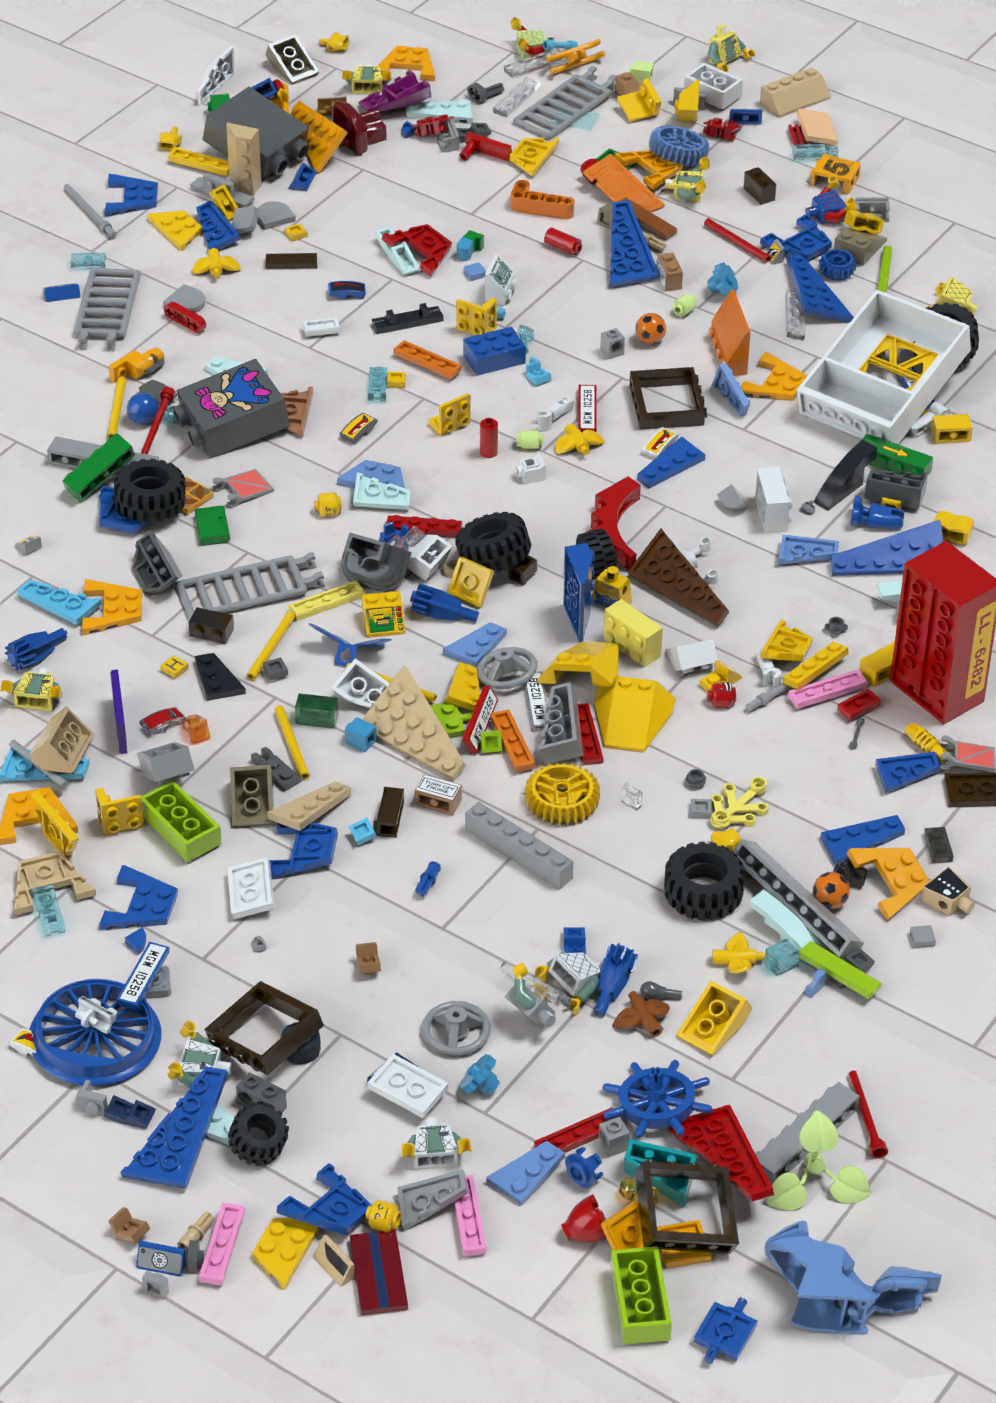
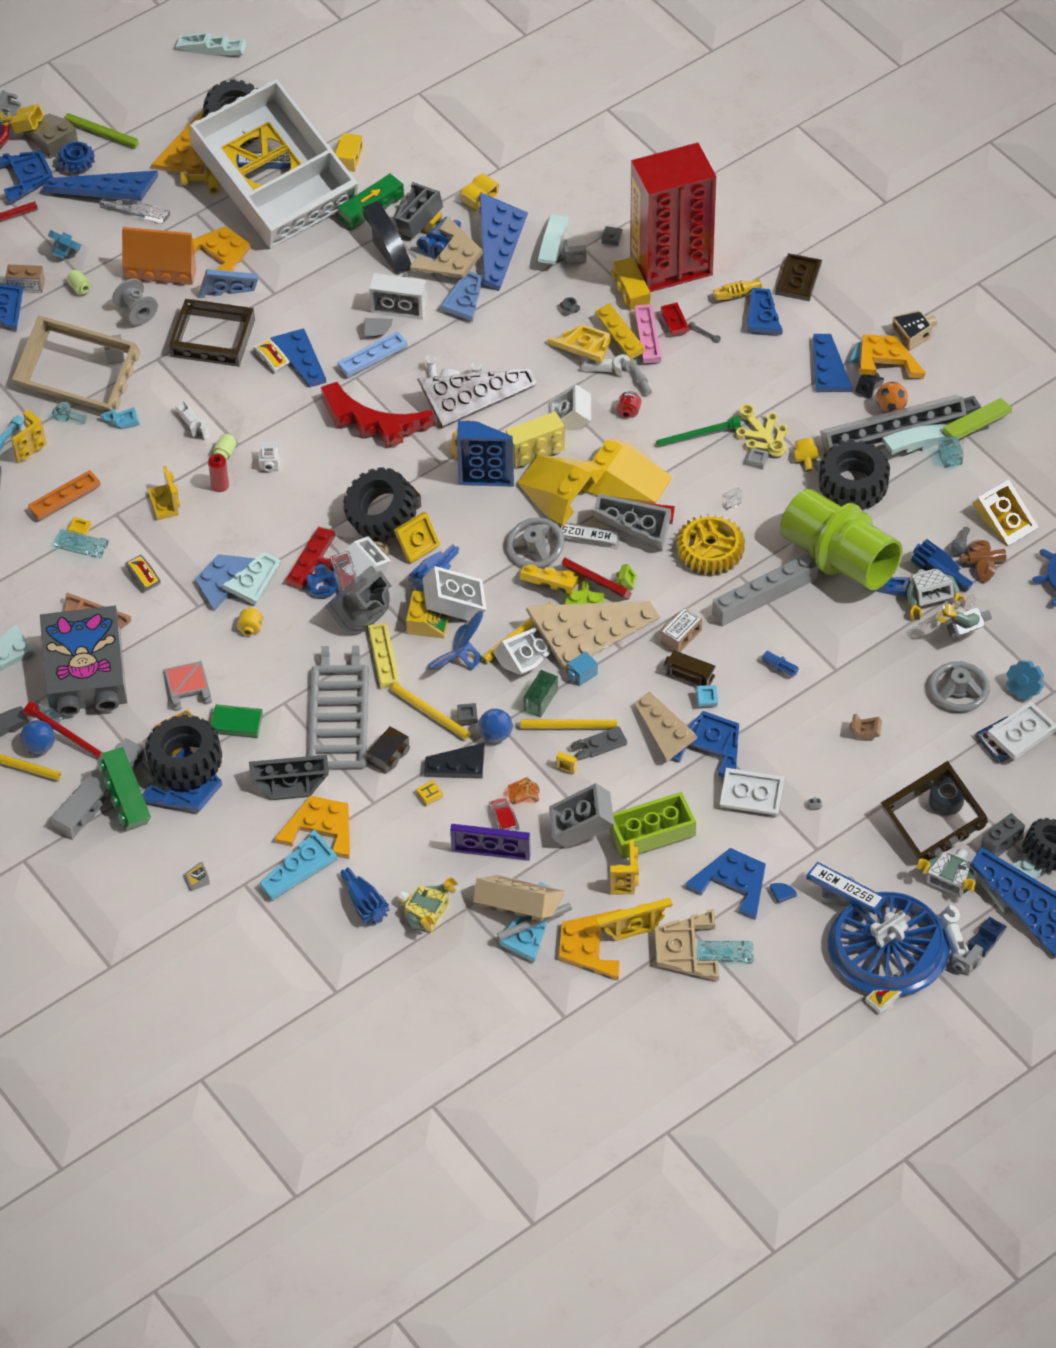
camera: 70 degrees left, 10 degrees up
(123, 1079) = (948, 918): none -> white piece
(239, 748) = (566, 762): none -> yellow tile
(251, 795) = (634, 766): dark tan slope -> none
(263, 686) = (495, 725): none -> blue piece
(404, 617) = (453, 593): none -> white brick
(476, 645) = (492, 558): medium blue wing -> none
(494, 351) = (80, 439): blue brick -> none
(512, 740) = (637, 561): orange plate -> none
(568, 295) = (35, 346): none -> tan window
(576, 439) = (241, 413): yellow plant -> none
(587, 407) = (196, 395): tile -> none
(592, 875) = (841, 539): none -> lime piece
(603, 548) = (423, 436): black tyre -> none
(650, 328) = (109, 314): orange piece -> none
(666, 342) = (130, 295): none -> light grey hose
(695, 778) = (722, 451): dark grey plate -> none
(696, 505) = (372, 354): none -> light blue plate
(722, 673) = (604, 401): yellow slope -> none
(736, 777) = (732, 423): none -> green piece
(737, 954) = (937, 480): yellow plant -> none
(776, 252) = (33, 193): light grey slope -> none
(817, 984) = (984, 439): medium blue tile -> none
(850, 527) = (456, 257): none -> tan wing
(922, 936) = (951, 360): light grey tile -> none
(938, 845) = (853, 320): clear smoke plate -> none
(955, 293) = (171, 93): light yellow torso -> none
(968, 755) = (762, 266): flag -> none

